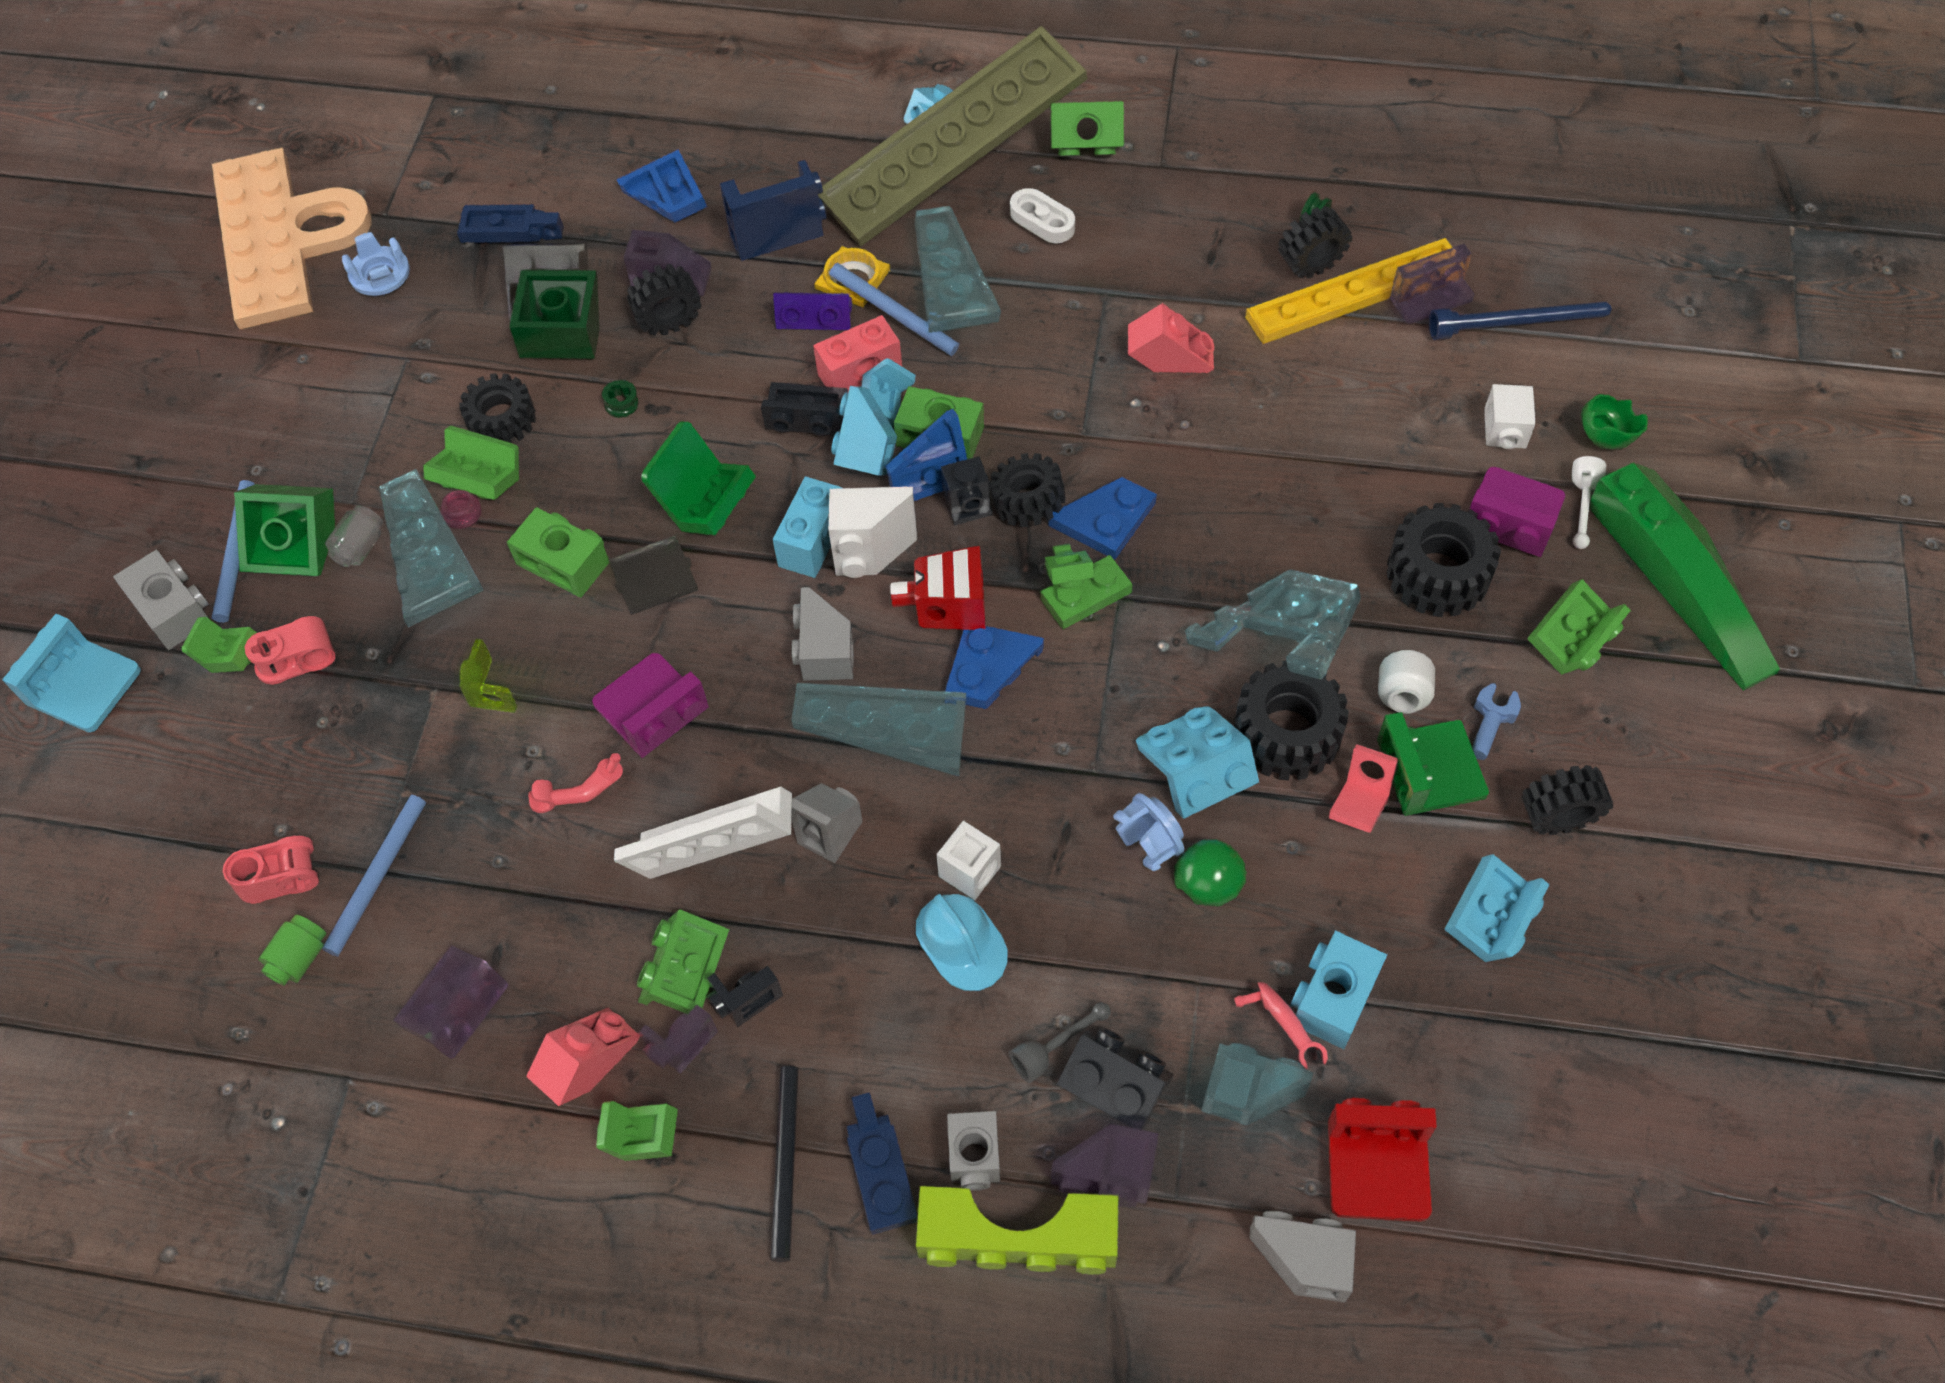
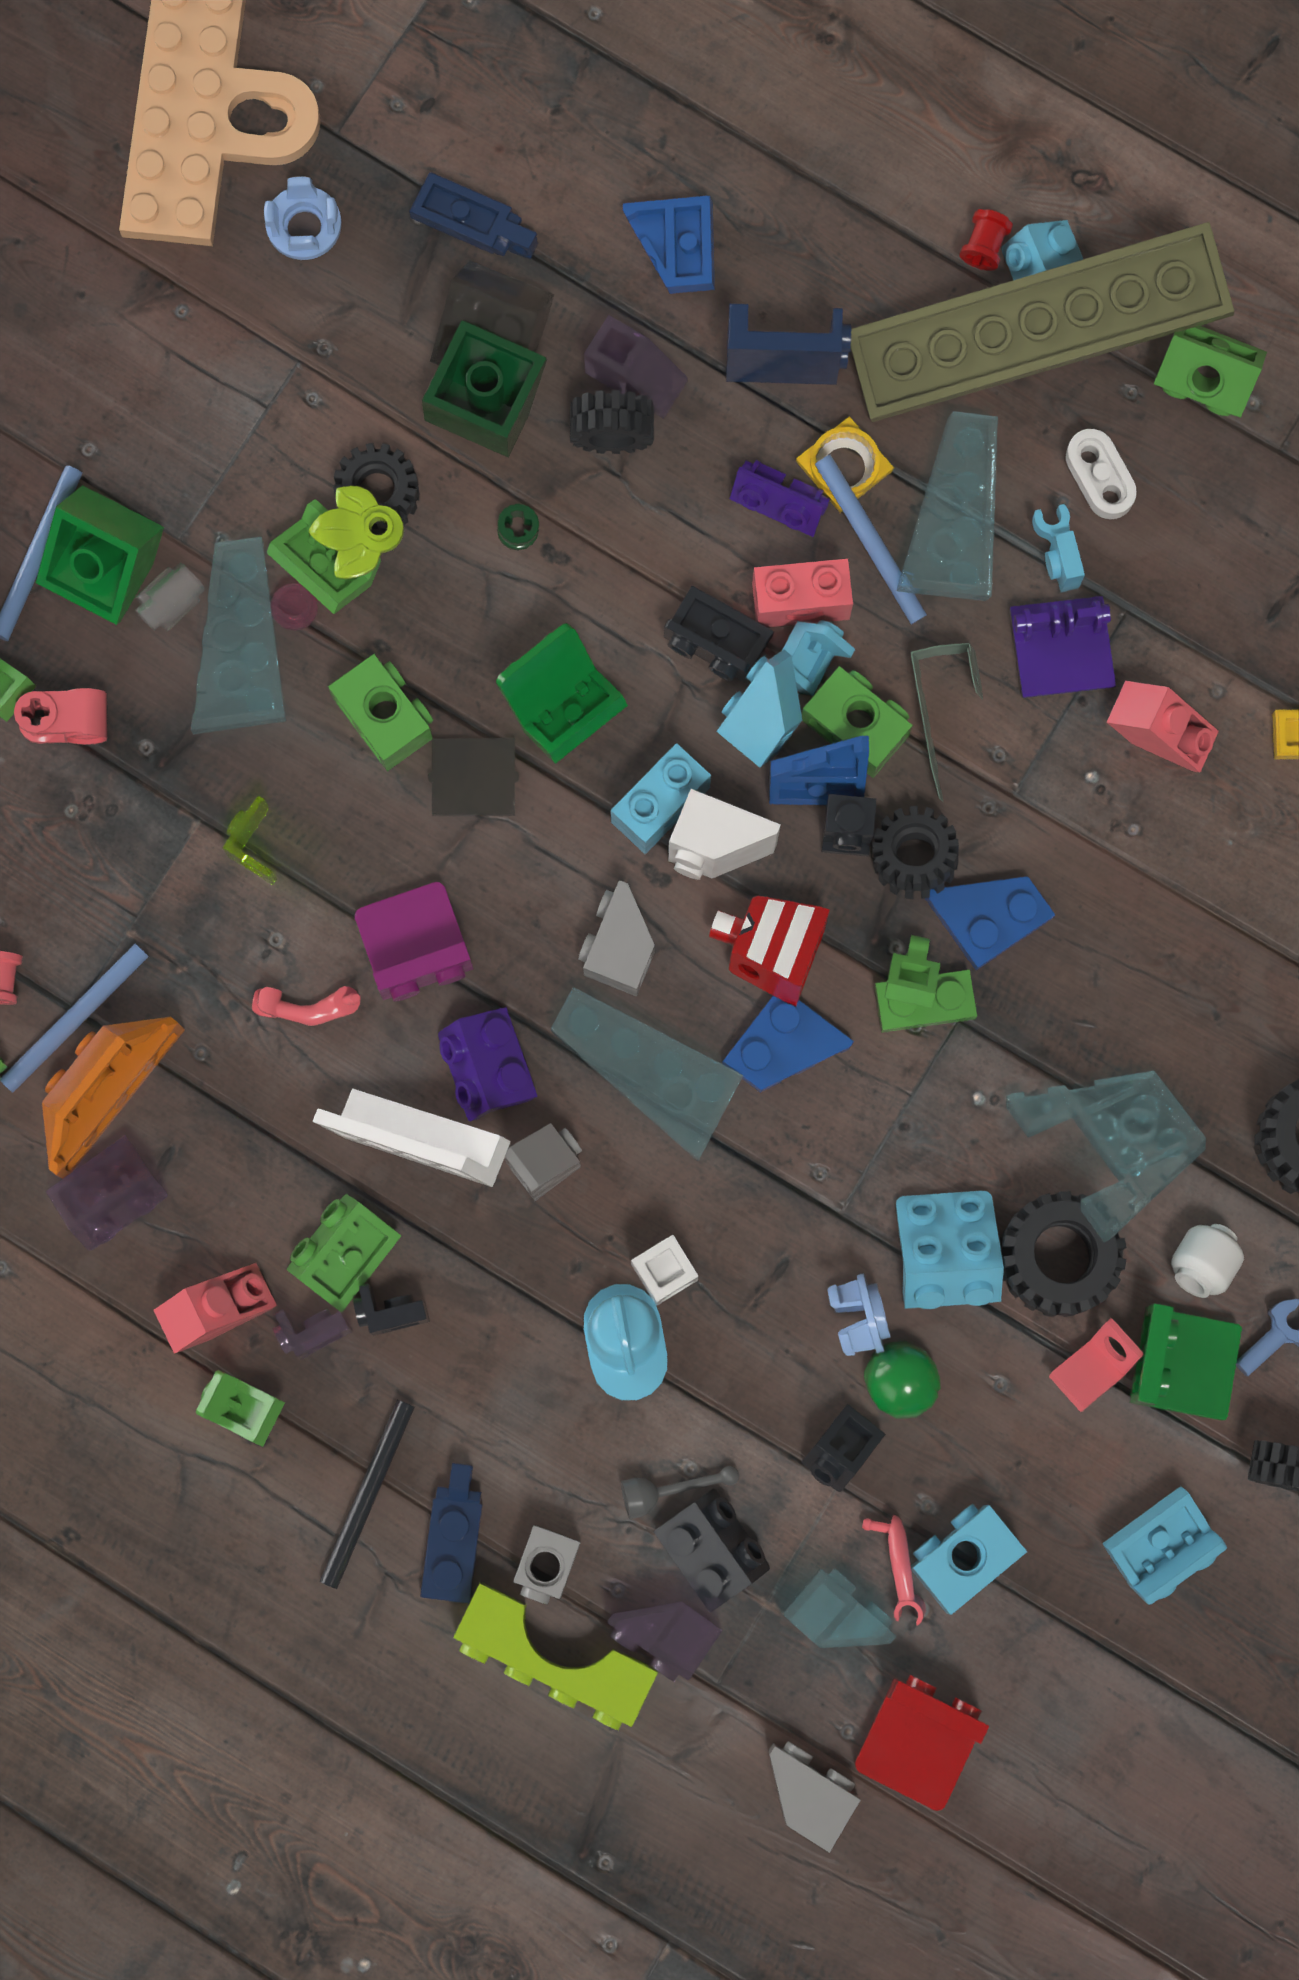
camera: 20 degrees right, 20 degrees up
(417, 909) = (99, 1085): none -> orange wedge
(490, 432) = (350, 531): none -> lime plate
(745, 764) = (486, 1063): none -> dark purple bracket
(890, 105) = (986, 239): none -> red bush
(987, 356) = (936, 651): none -> sand green piece
(1042, 268) = (1063, 559): none -> medium azure plate
(1070, 325) = (1063, 646): none -> dark purple hinge
(1187, 947) = (843, 1449): none -> black bracket

